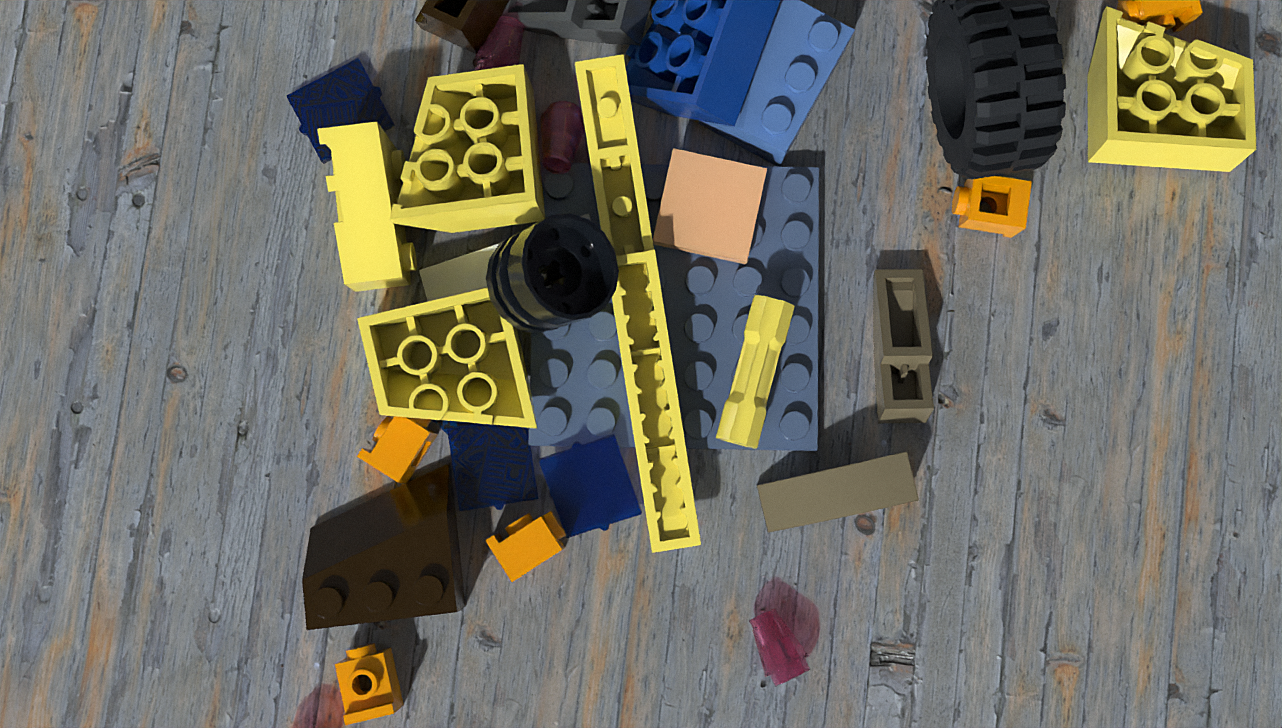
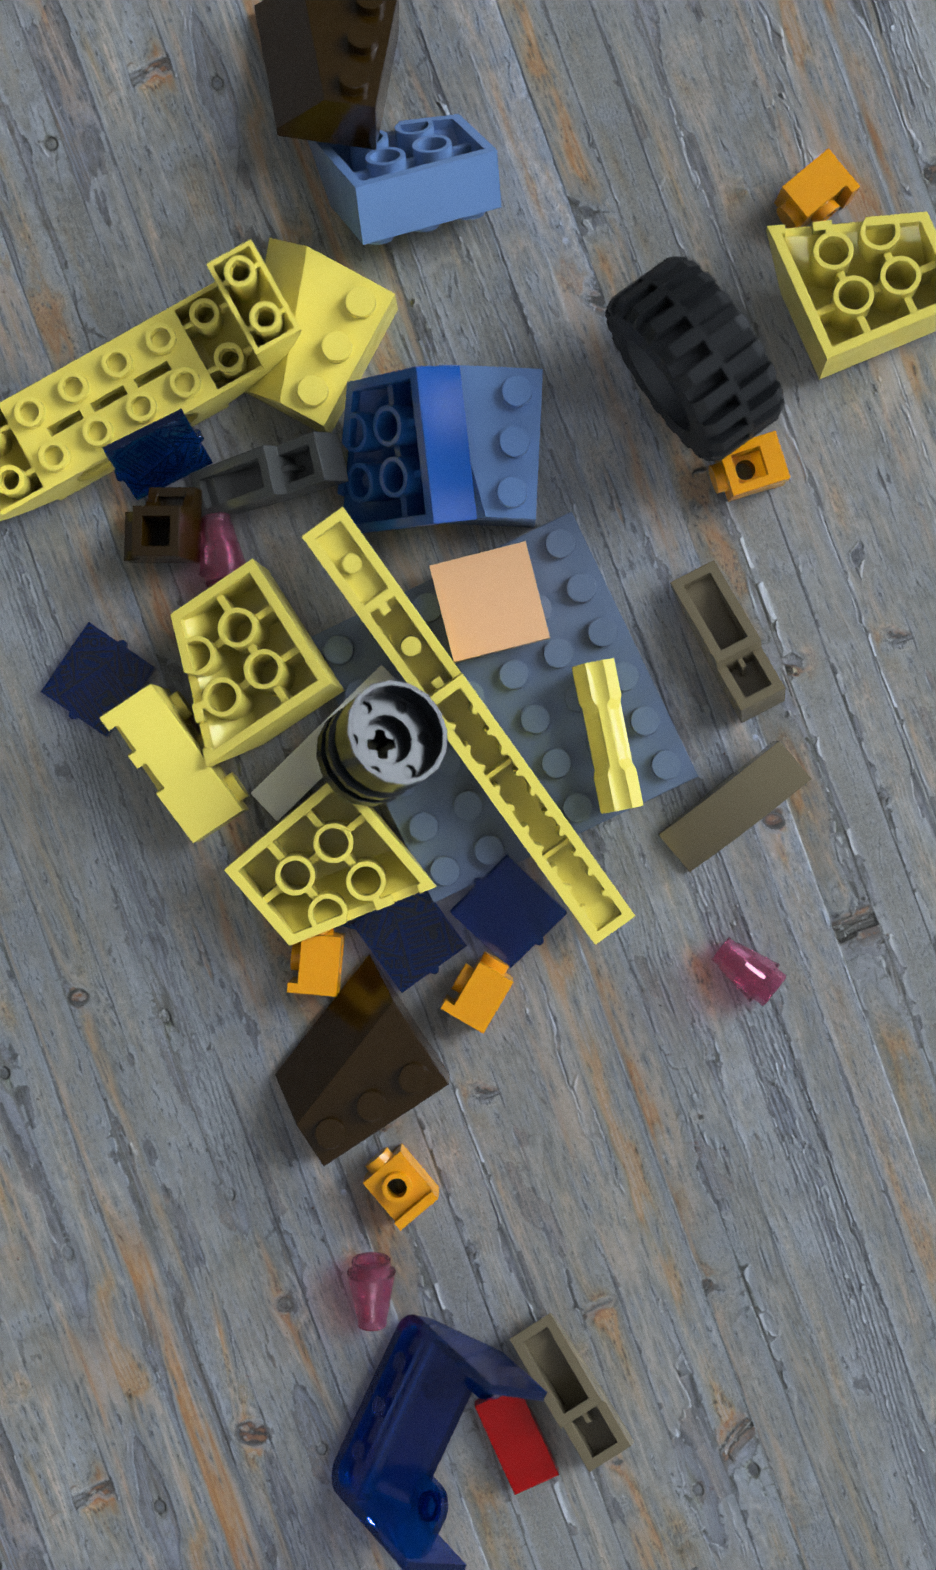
camera: 30 degrees left, 5 degrees up
(561, 135) = (318, 603): clear pink cone -> none

